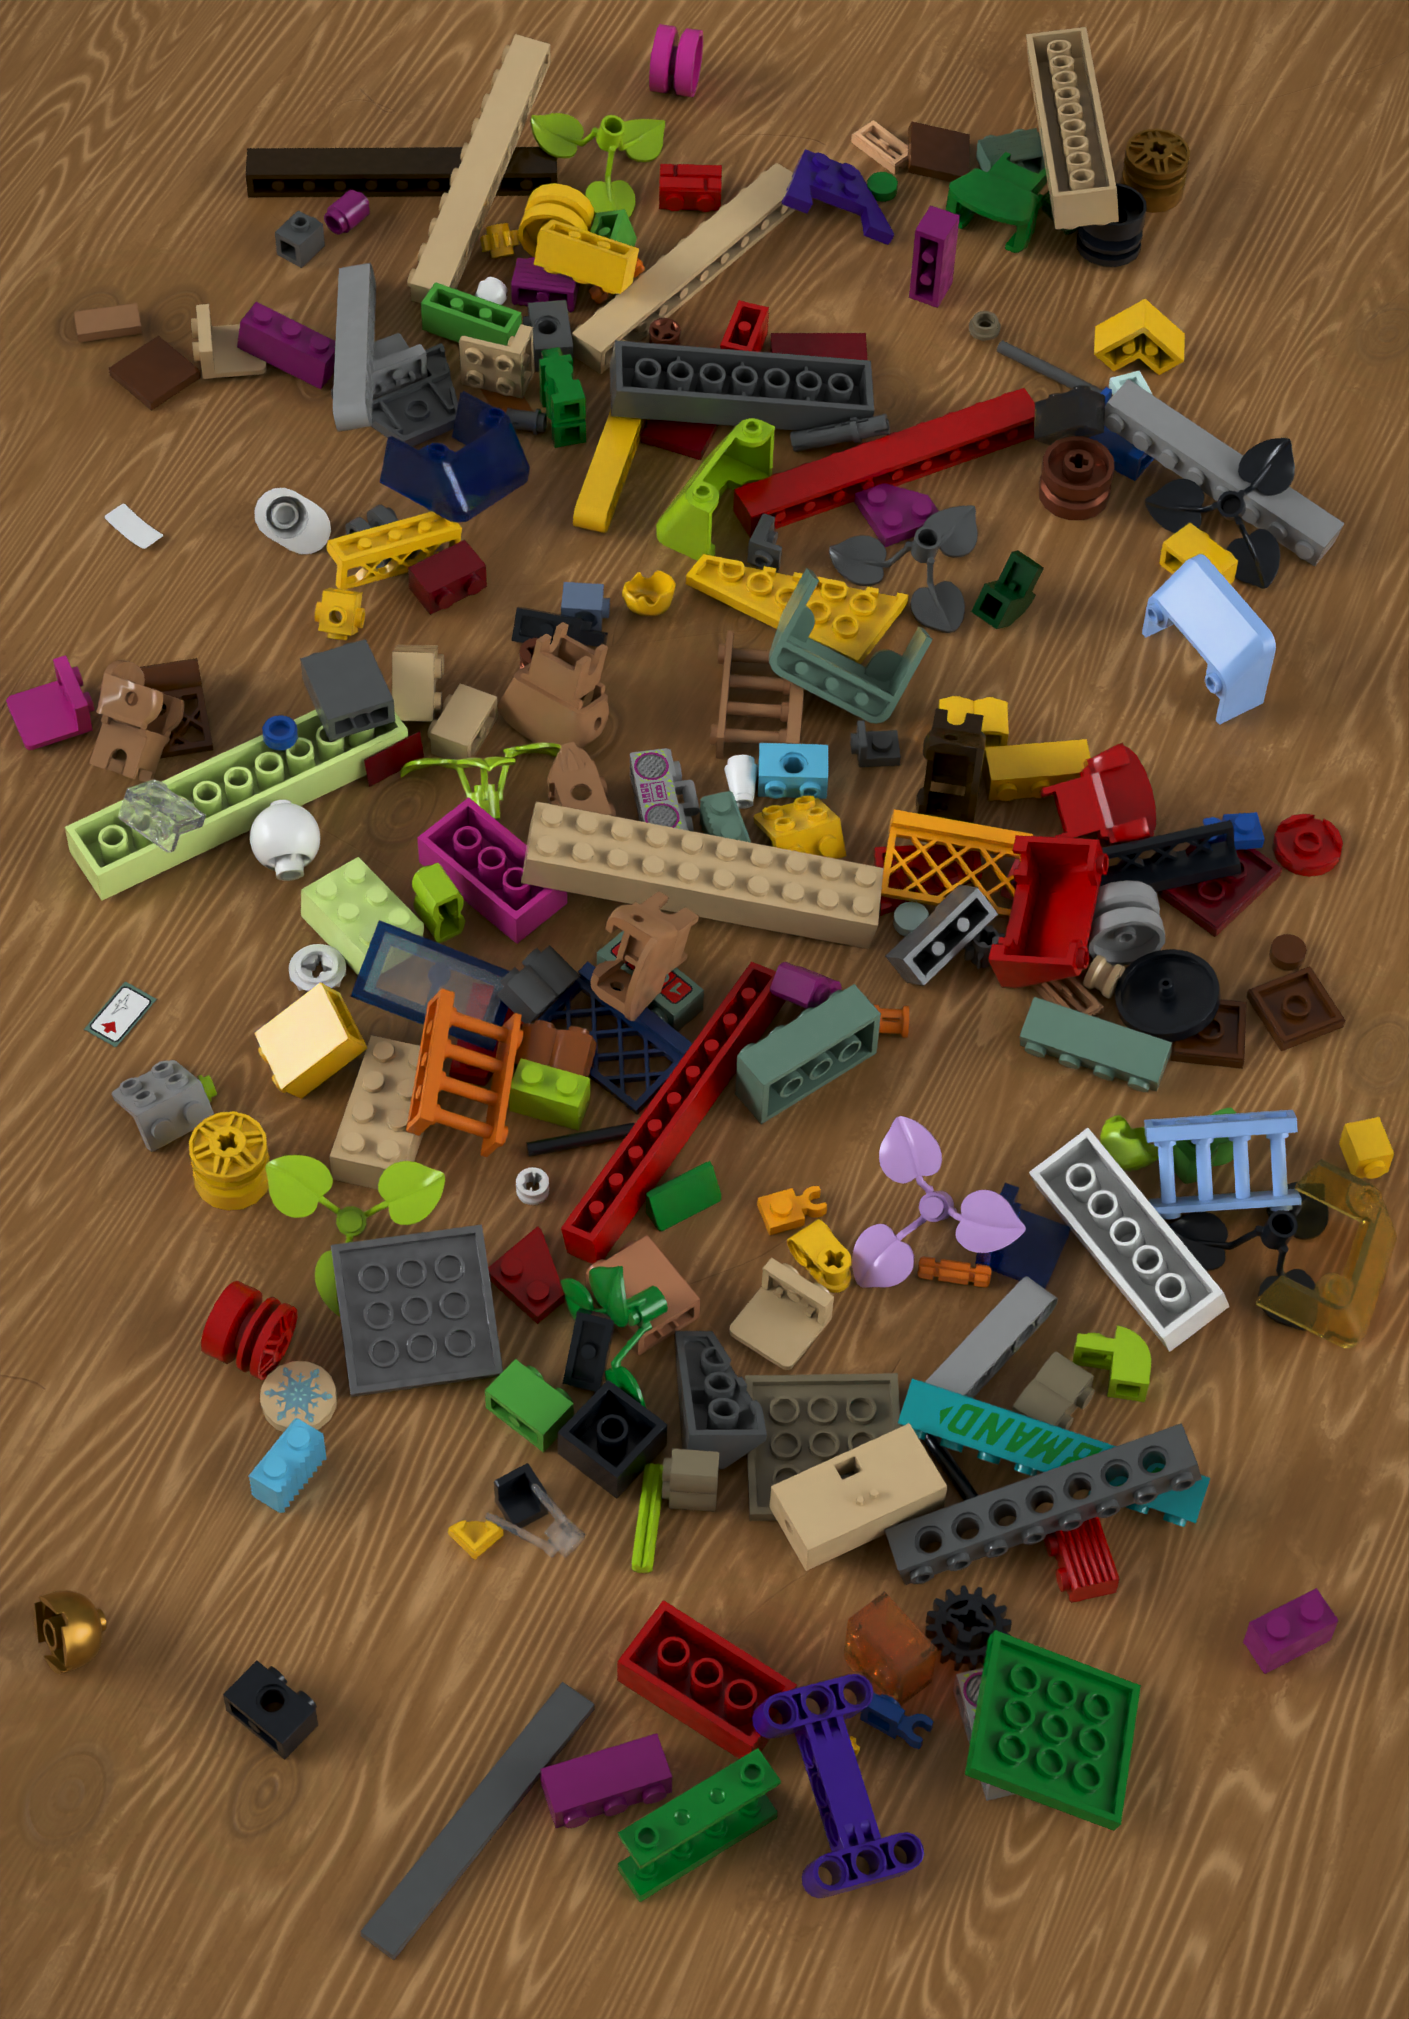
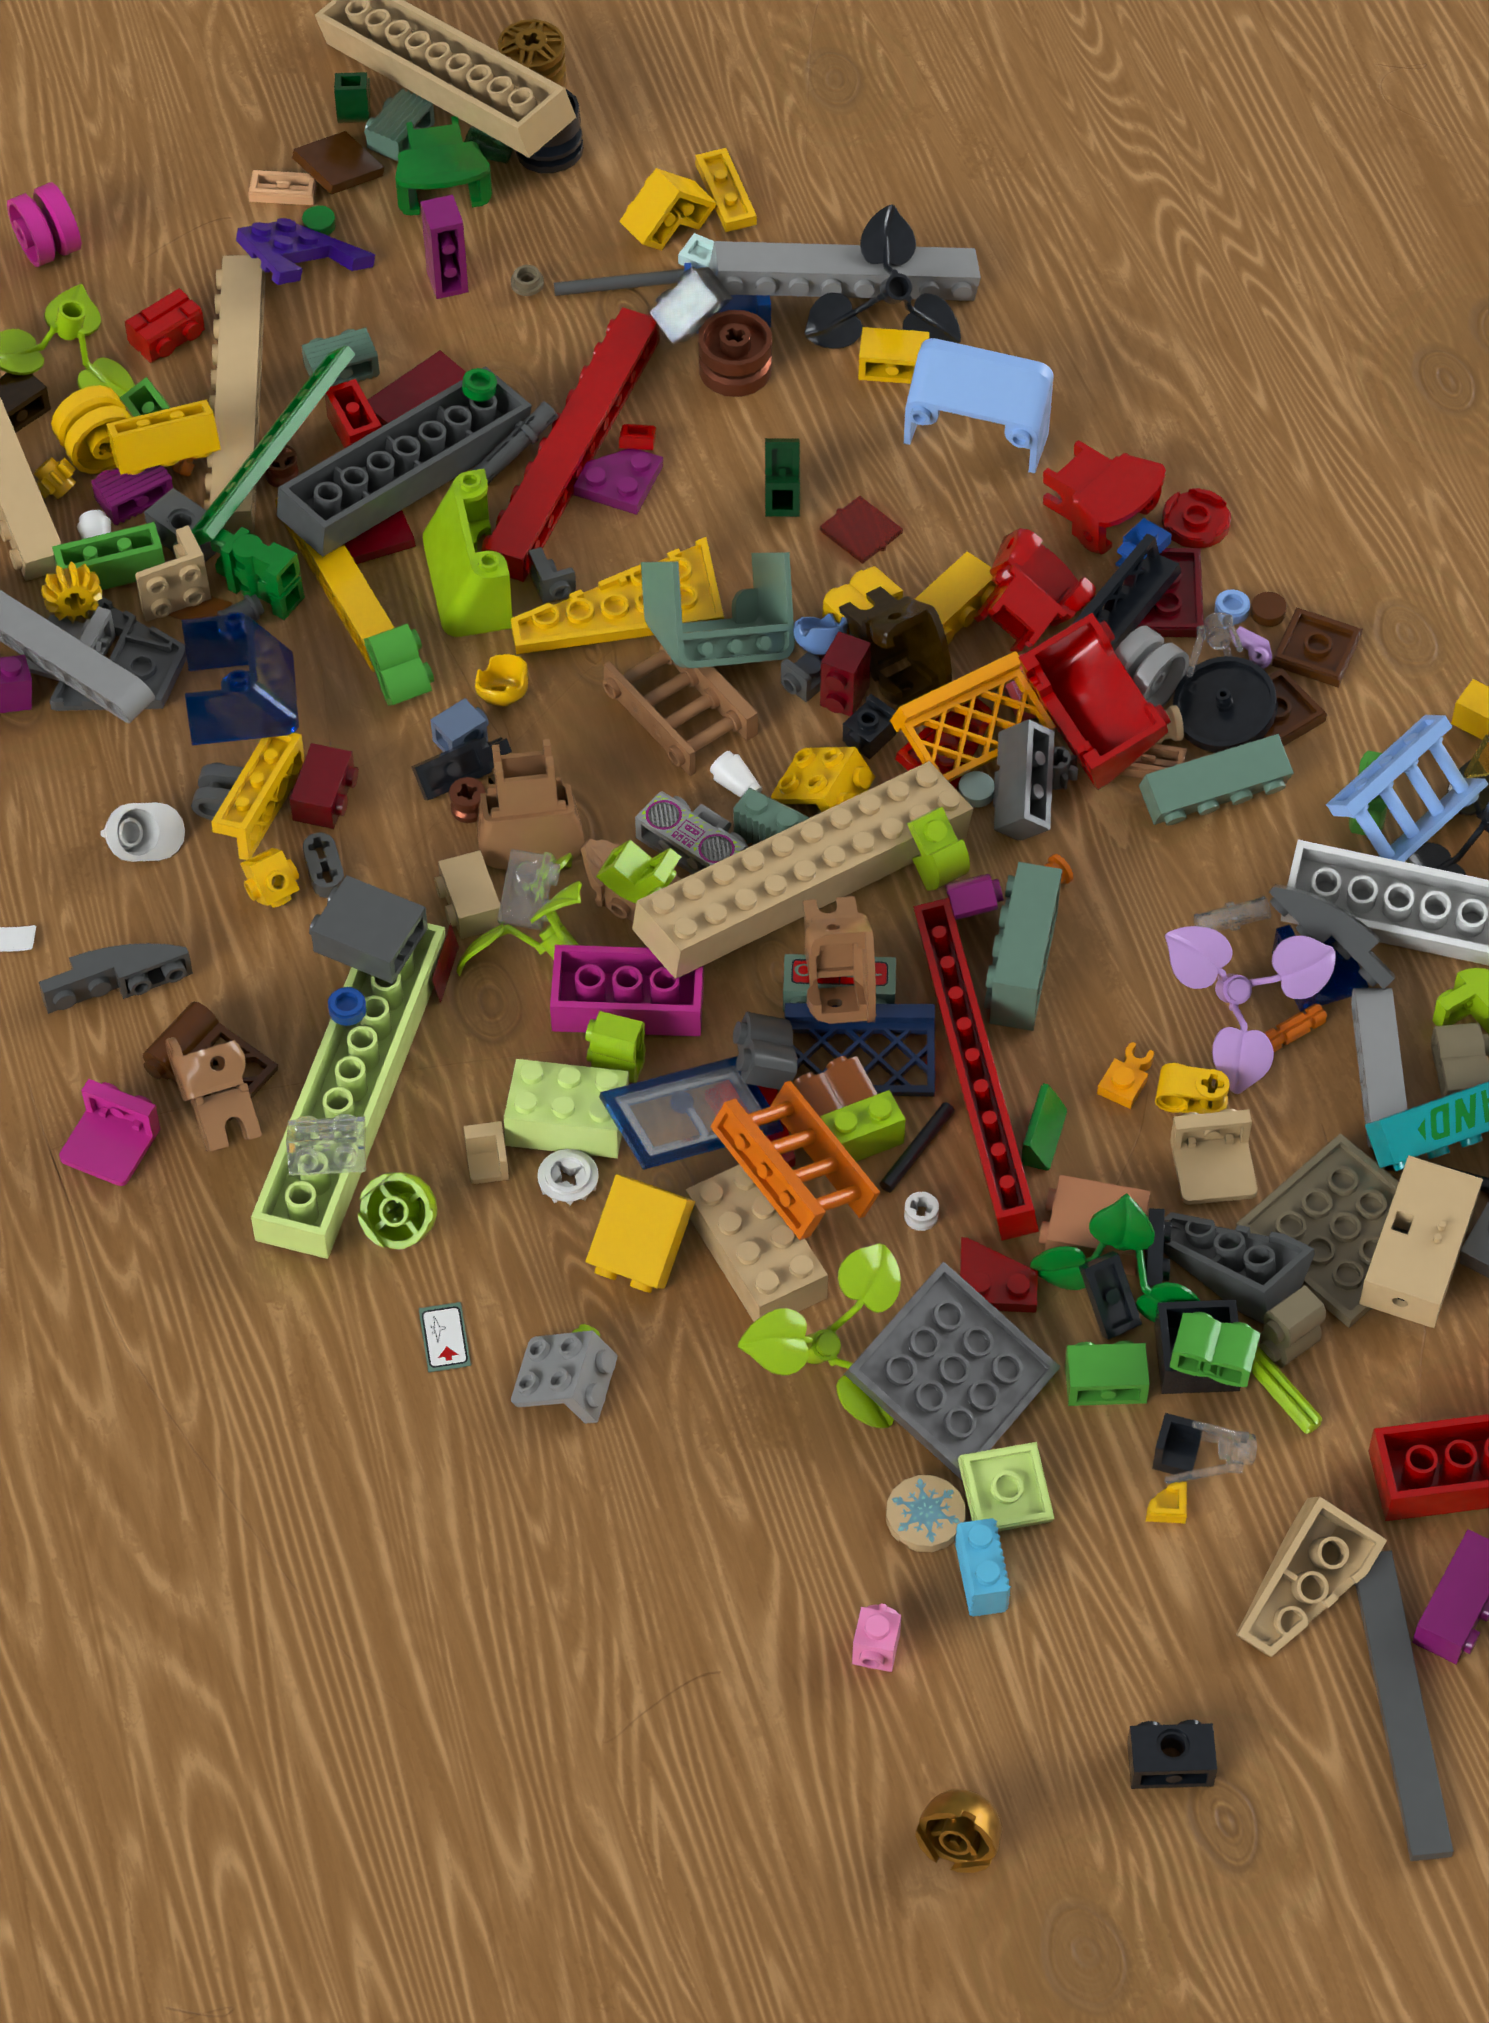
camera: 40 degrees left, 0 degrees up
(162, 1452) = (876, 1637): none -> bright pink brick
(170, 899) = (397, 1210): none -> lime cylinder
(183, 604) = (126, 967): none -> dark grey slope
(229, 1160) = (685, 1392): yellow wheel -> none
(249, 1330) = (853, 1487): red wheel -> none
(282, 910) = (486, 1152): none -> tan panel
(285, 839) = (436, 1091): white brick -> none
(368, 1425) = (1007, 1486): none -> yellowish green tile
(386, 630) = (316, 866): none -> dark grey beam
(414, 681) = (400, 873): tan brick -> none
(418, 322) = (71, 592): none -> yellow gear
(497, 737) = (527, 888): none -> clear bracket
(517, 1667) = (1311, 1570): none -> tan wedge
(574, 786) = (636, 874): none -> lime brick
(586, 528) = (399, 664): none -> bright green brick
(602, 1443) = (1215, 1349): none -> bright green brick
(650, 1354) = (1156, 1266): none -> black plate
(657, 313) = (271, 445): none -> green tile
(786, 291) = (361, 366): none -> sand green brick
(792, 770) = (769, 738): medium azure brick -> none
(817, 934) = (941, 853): none -> lime brick
(847, 369) = (479, 384): none -> green tile
(873, 815) = (869, 727): none -> black brick
(893, 762) = (845, 674): none -> dark red brick
(910, 721) = (817, 634): none -> medium blue hair
(937, 606) = (685, 464): dark grey plant -> none
(940, 490) = (637, 437): none -> red tile
(994, 110) = (352, 97): none -> dark green brick
(998, 1154) = (1234, 915): none -> clear pin
(1037, 672) = (861, 529): none -> clear red piece
(1047, 1203) = (1323, 918): none -> dark grey slope
(1127, 1144) = (1315, 831): lime hair -> none
(1206, 357) = (726, 189): none -> yellow plate
(1219, 941) = (1218, 633): none -> clear plant
(1242, 767) = (1102, 492): none -> red piece
(1245, 975) = (1257, 646): none -> lavender arm
(1261, 930) = (1233, 603): none -> light blue tile

